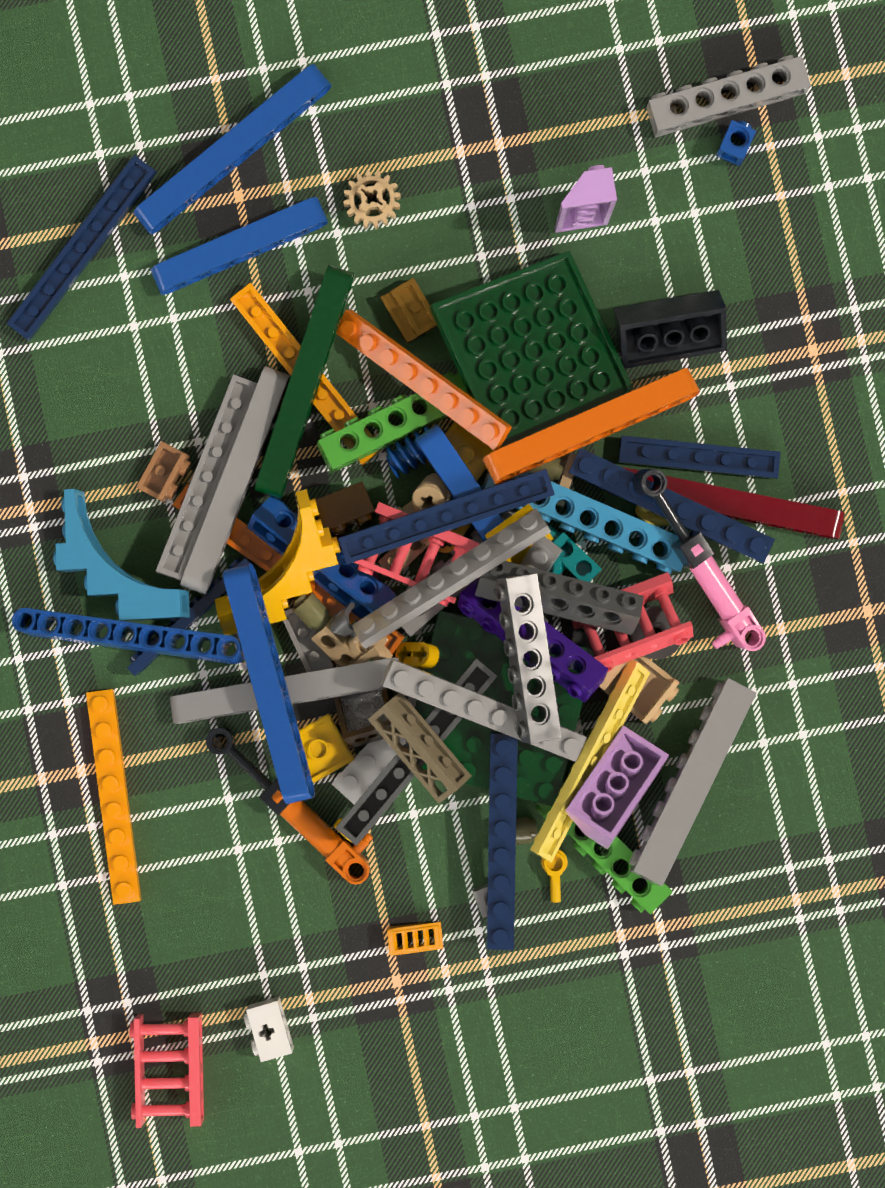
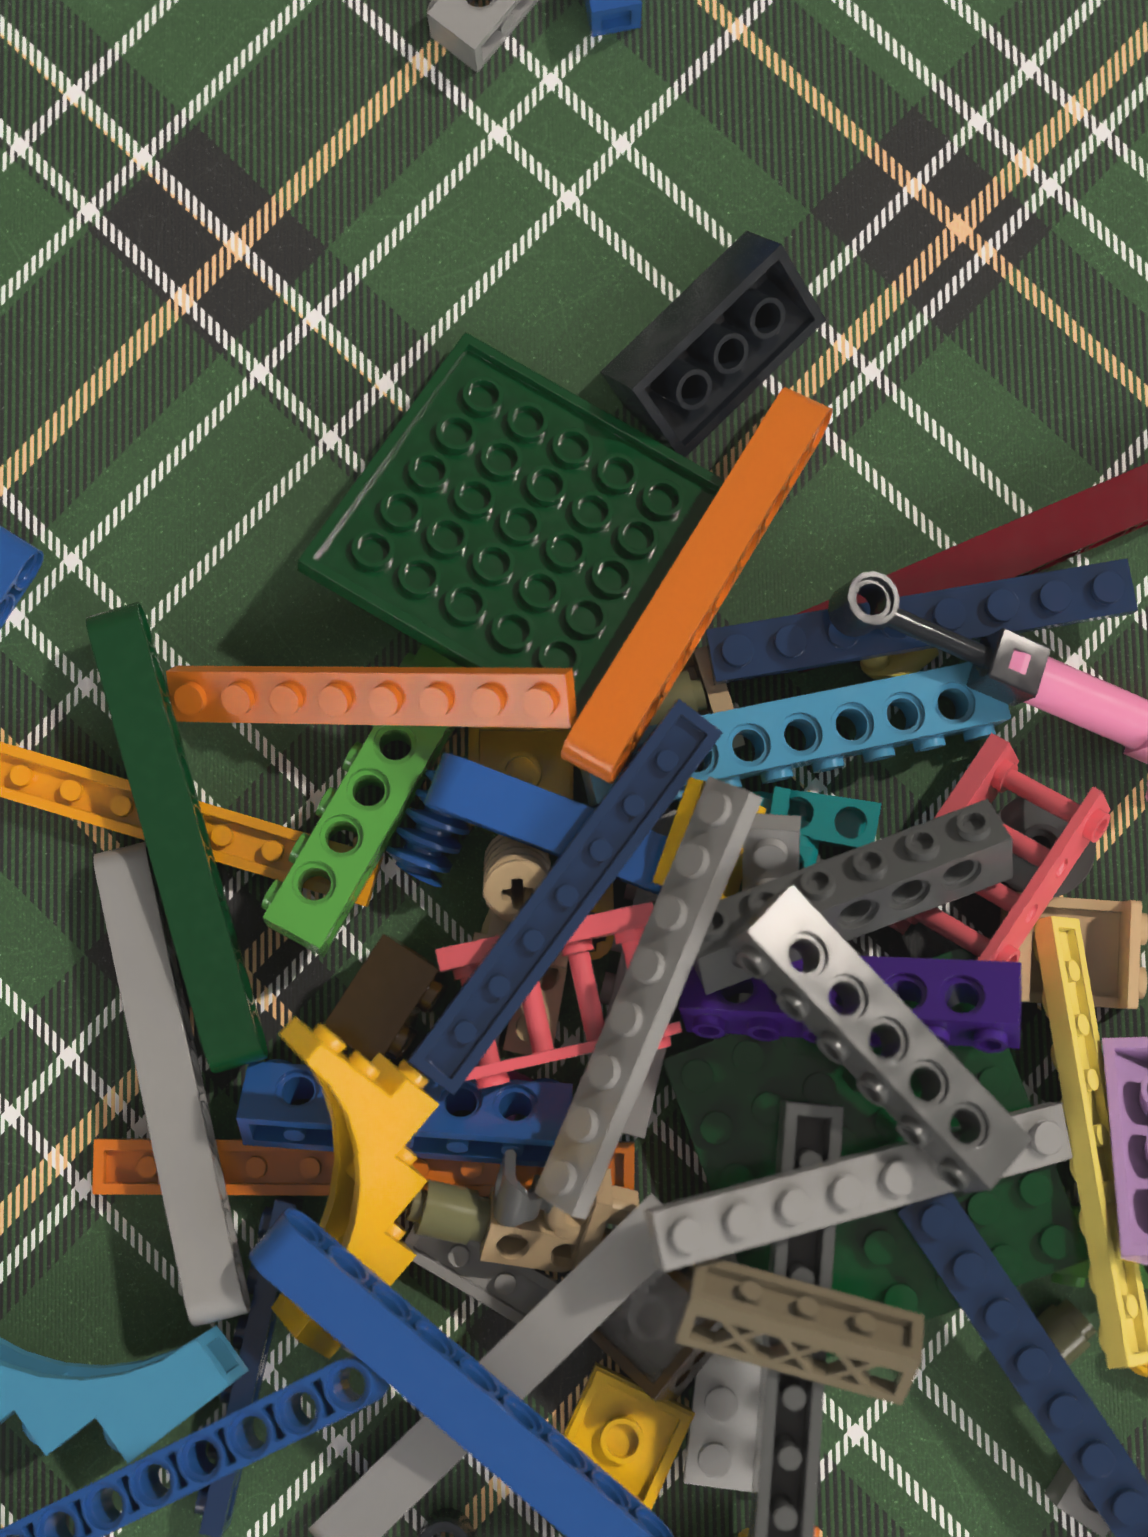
camera: 30 degrees left, 5 degrees down
(163, 472) = (43, 1149): medium nougat bracket -> none
(206, 478) = (118, 1116): light grey plate -> none
(377, 190) = (75, 450): tan gear -> none
(409, 310) = (273, 602): pearl gold plate -> none
(417, 650) = (680, 1169): yellow beam -> none
(589, 201) = (442, 220): lavender slope -> none
(699, 457) = (904, 515): dark blue plate -> none

